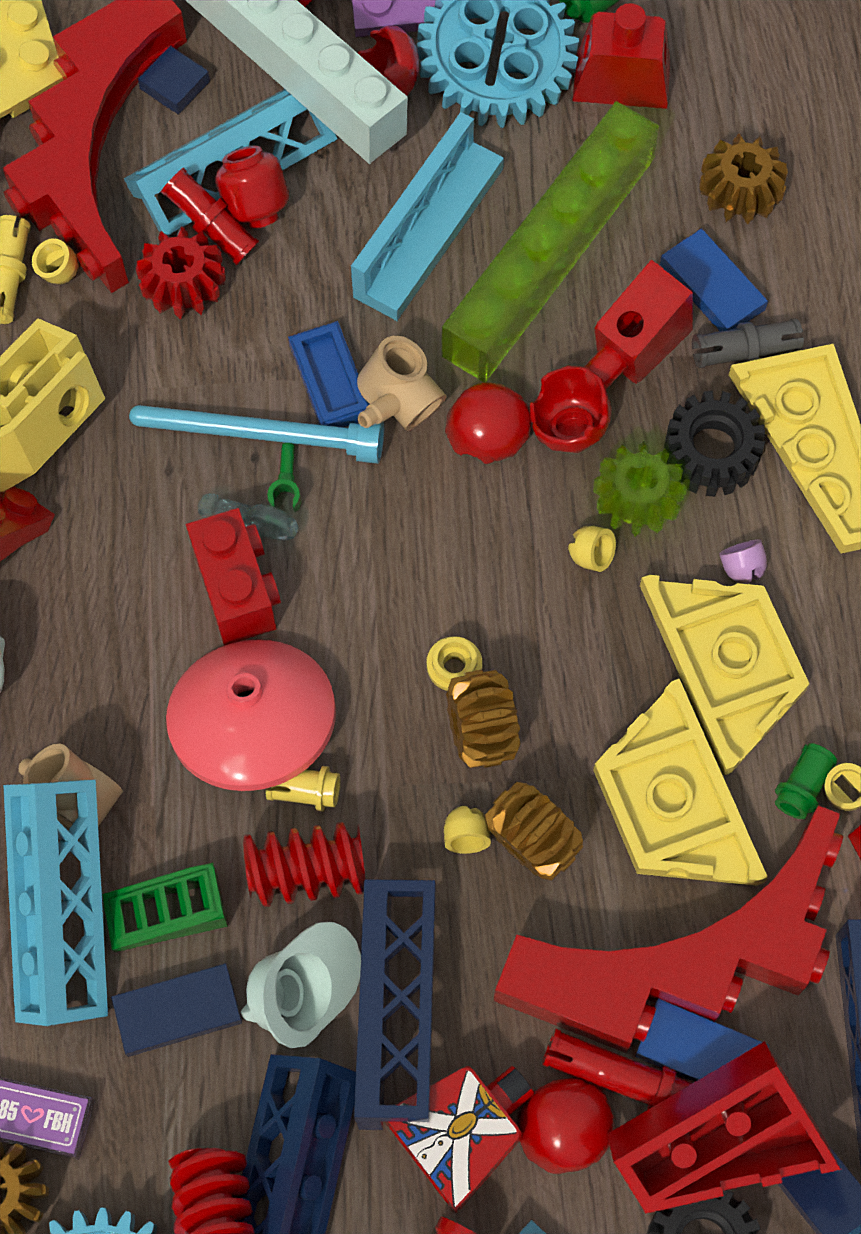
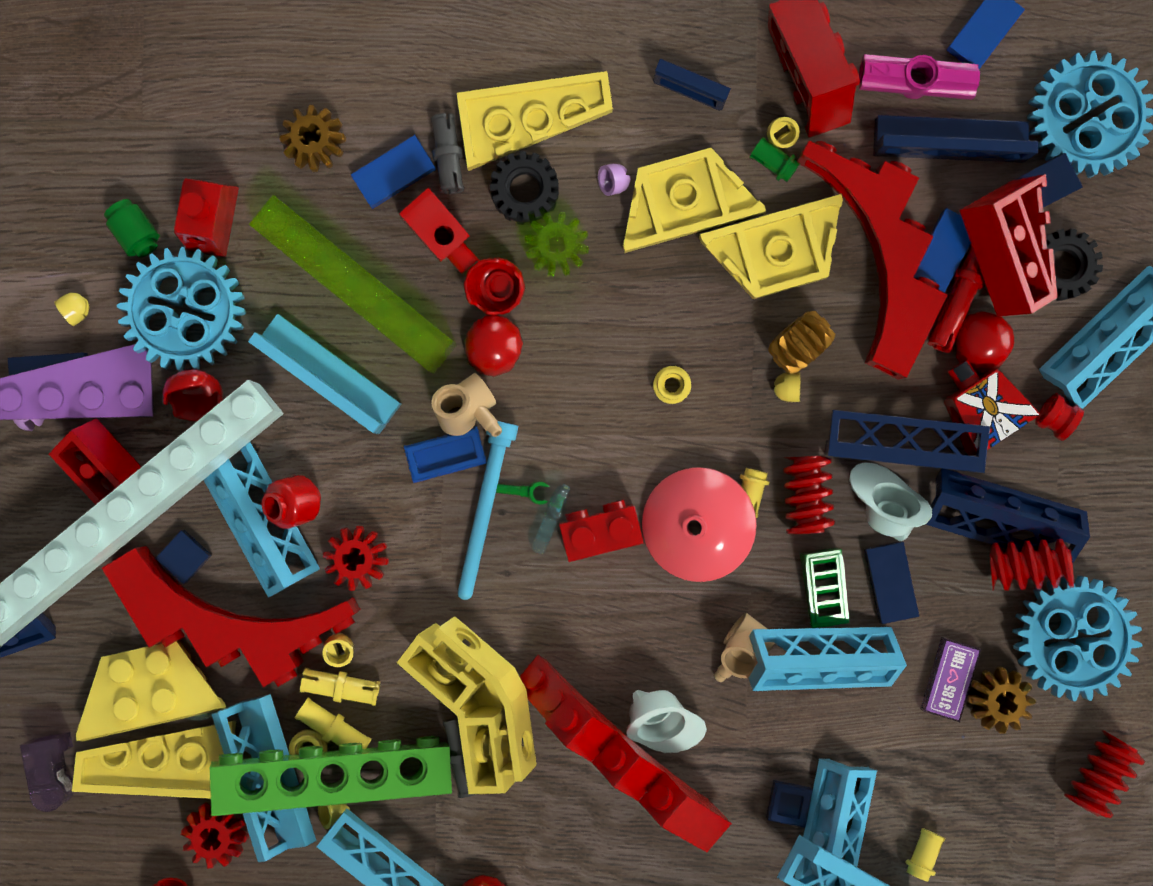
camera: 85 degrees left, 20 degrees up
(209, 215) = (313, 534): red pin -> none
(483, 718) = (721, 368): pearl gold gear -> none
(593, 548) = (596, 281): light yellow hinge -> none

